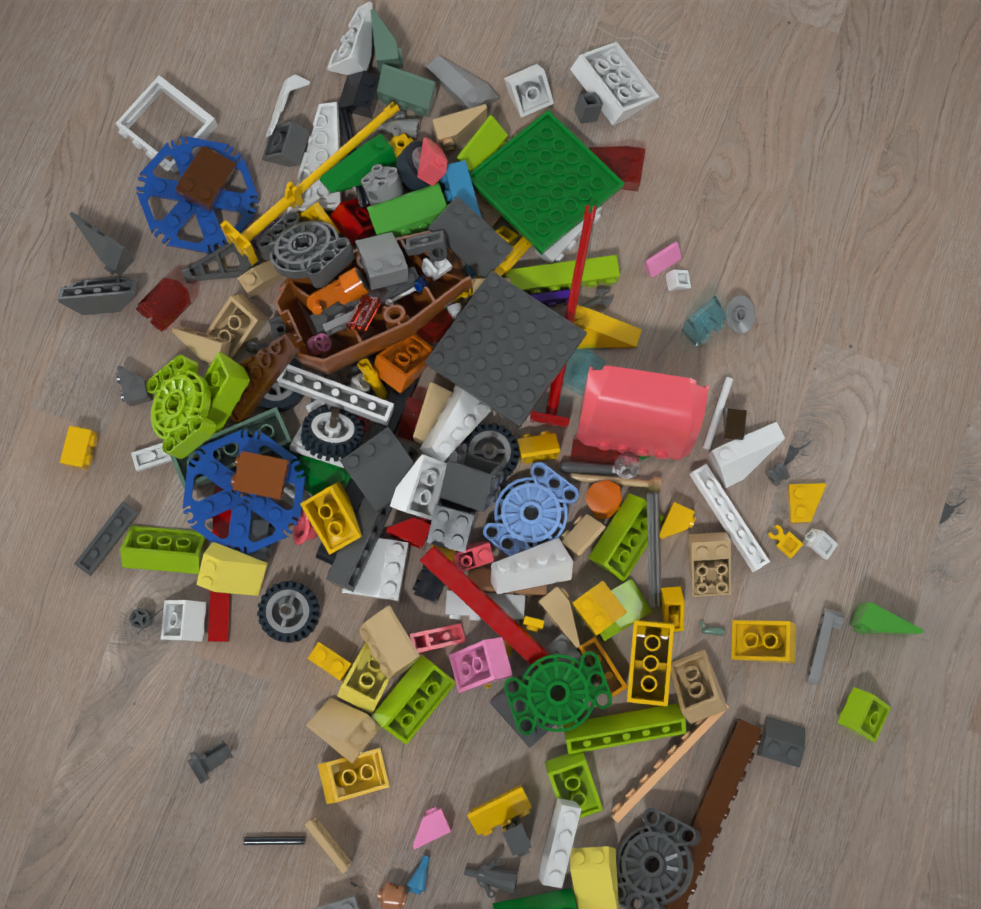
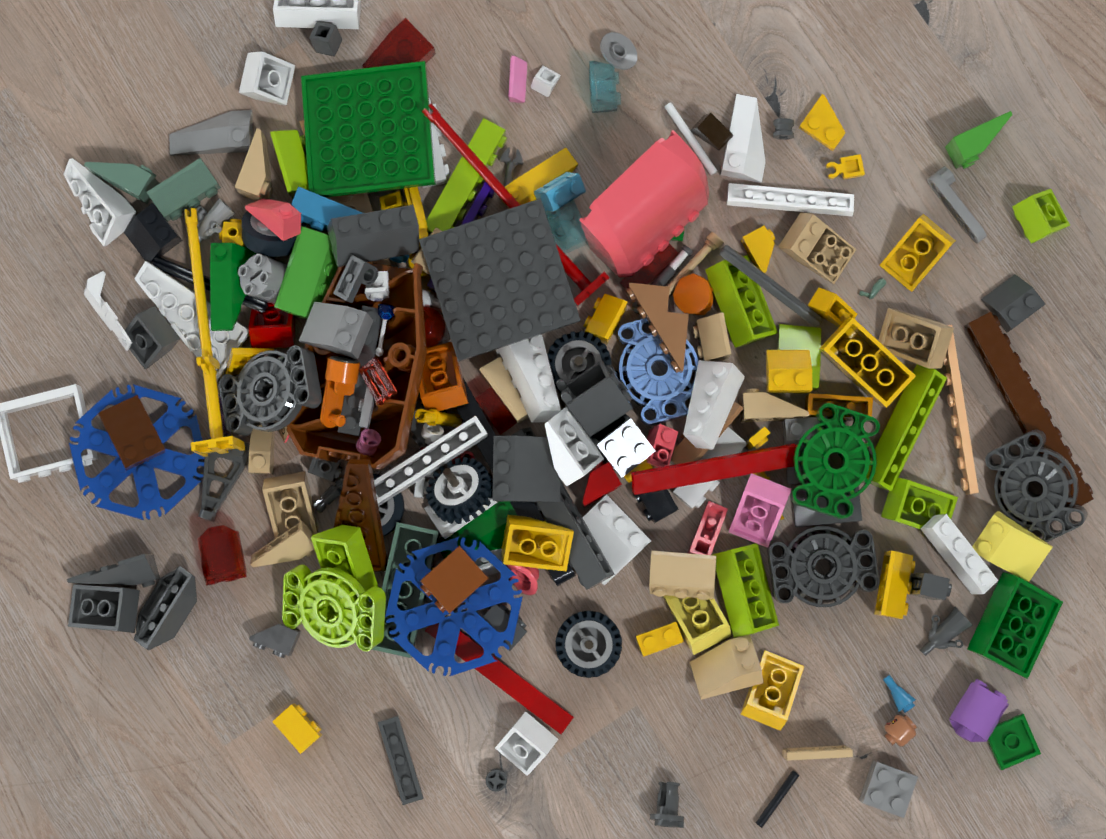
camera: 50 degrees left, 5 degrees up
(70, 253) = (104, 608): none -> dark grey slope
(150, 457) = (355, 667): white plate -> none
(163, 549) = (449, 716): lime slope -> none
(231, 571) = (517, 668): light yellow slope -> none
(432, 826) = (866, 654): bright pink slope -> none
(482, 763) = (843, 562): none -> dark grey piece
(565, 495) = (668, 326): none -> medium nougat slope
(605, 346) = (560, 191): none -> medium azure brick
(627, 465) = (680, 252): clear head -> none
(820, 543) = (869, 139): white bracket -> none

